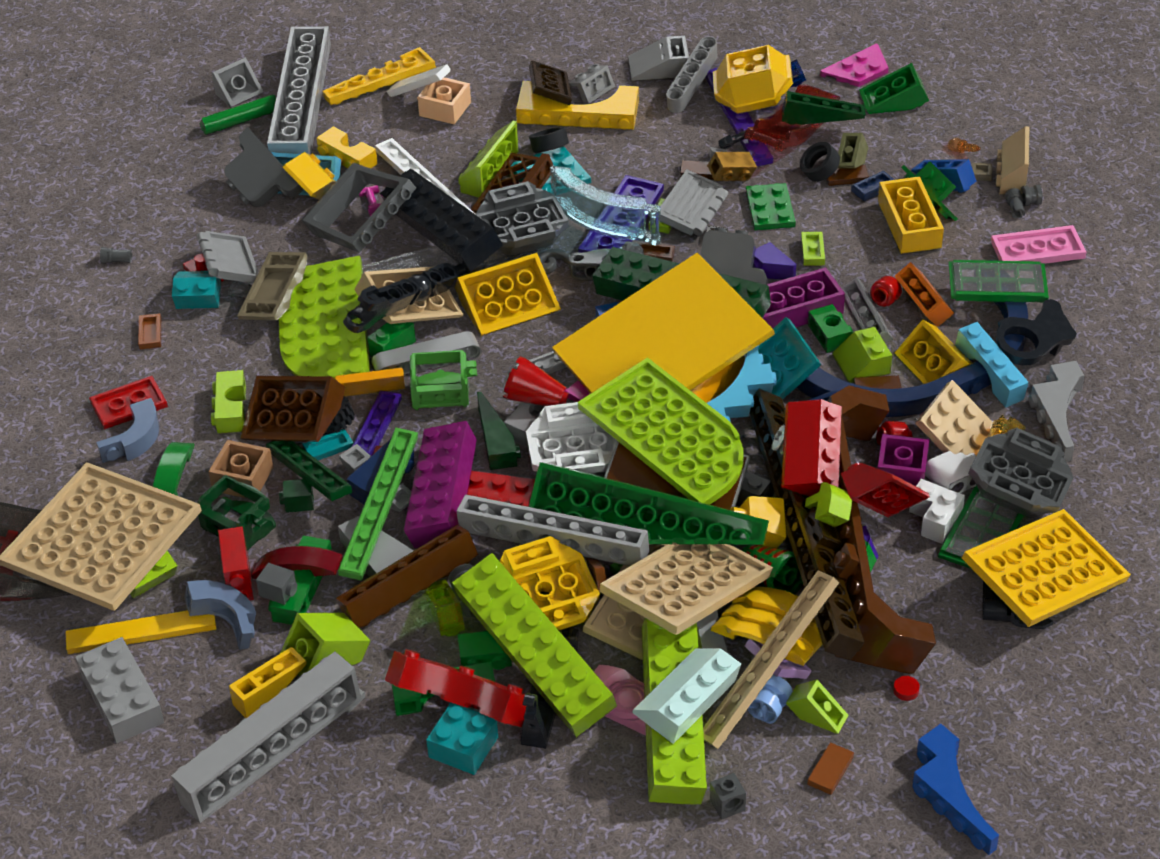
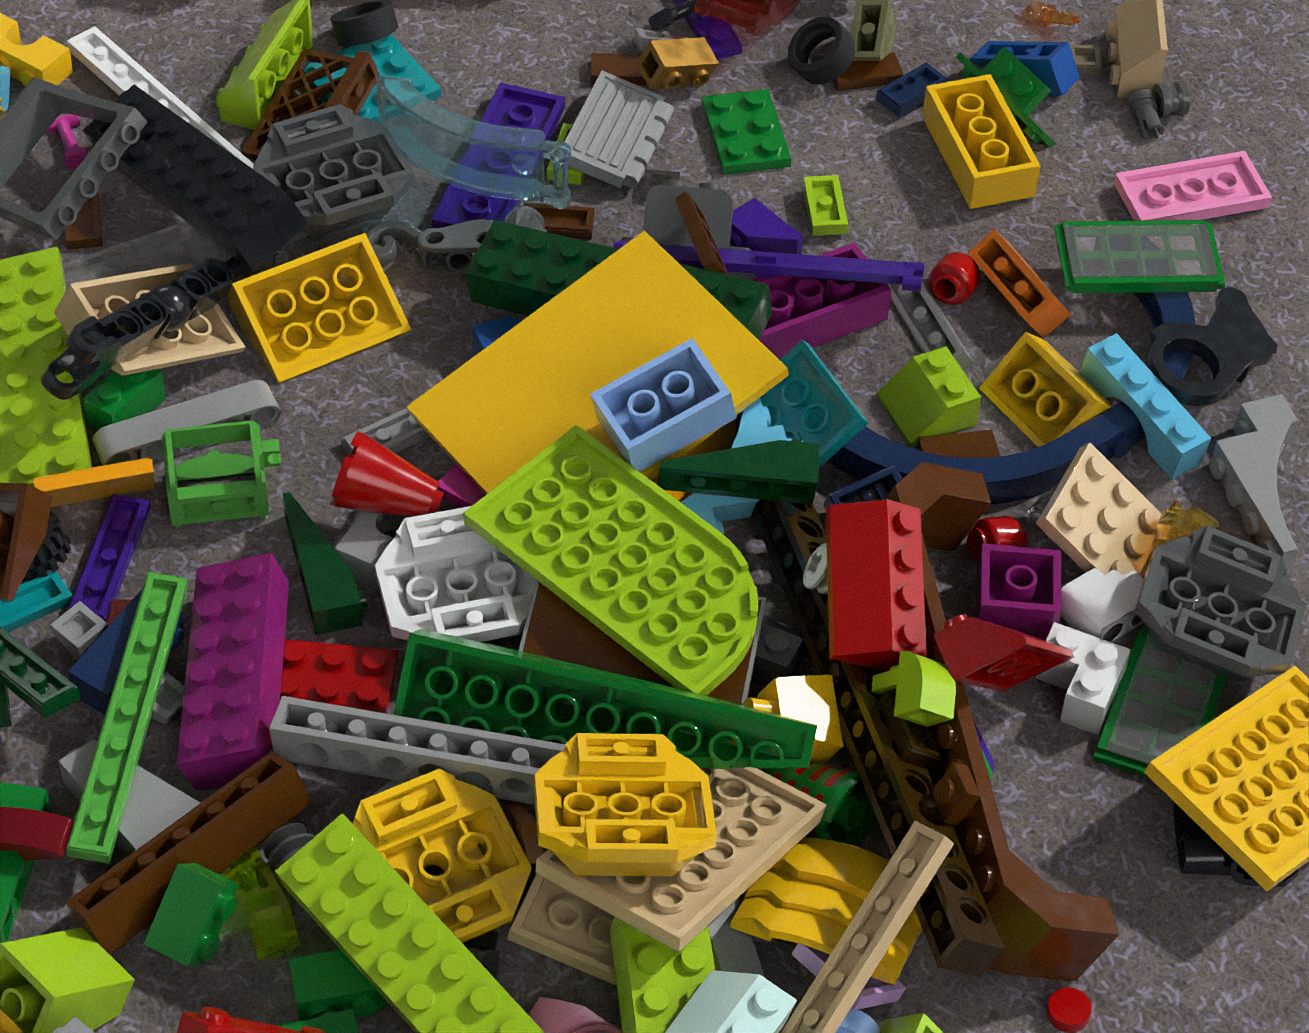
camera: 10 degrees left, 5 degrees up
(378, 247) = (87, 228): none -> reddish brown tile
(405, 608) = (192, 914): none -> green brick
(651, 556) = (623, 806): none -> yellow piece
(698, 347) = (663, 405): none -> light blue brick
(732, 257) = (700, 234): none -> reddish brown tile
(750, 387) = (758, 471): none -> dark green slope
(772, 277) = (811, 266): none -> dark purple piece
(828, 327) = (868, 348): green brick -> none

